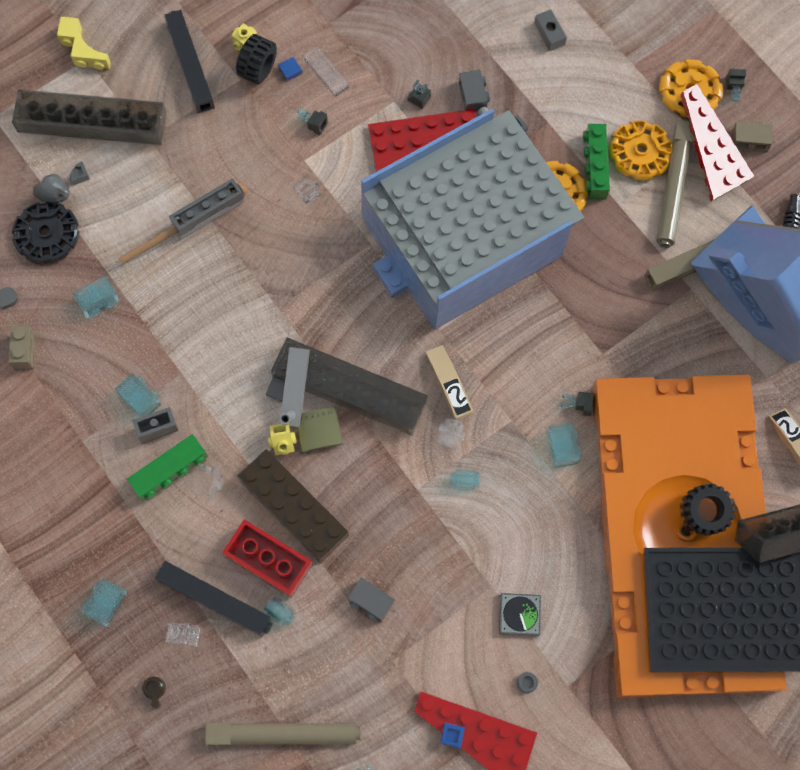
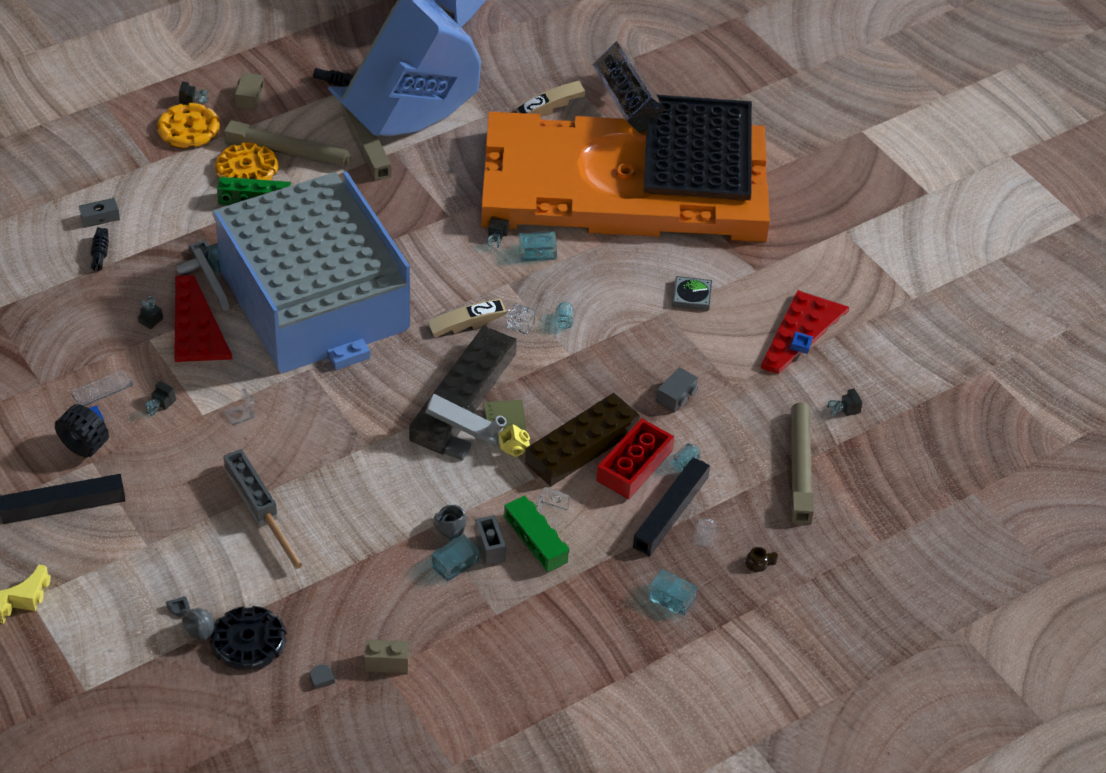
camera: 85 degrees left, 25 degrees down
(89, 117) = (114, 588): clear smoke brick -> none
(96, 297) = (336, 590): clear light blue brick -> none
(178, 388) = (450, 521): none -> dark grey hair
(241, 34) = (48, 447): light yellow brick -> none
(472, 90) = (155, 273): dark grey brick -> none
(502, 38) = (99, 248): none -> black hinge
(527, 682) = (753, 294): dark grey tile -> none
(715, 150) = (266, 111): wing -> none
(722, 502) = (612, 146): black tyre -> none

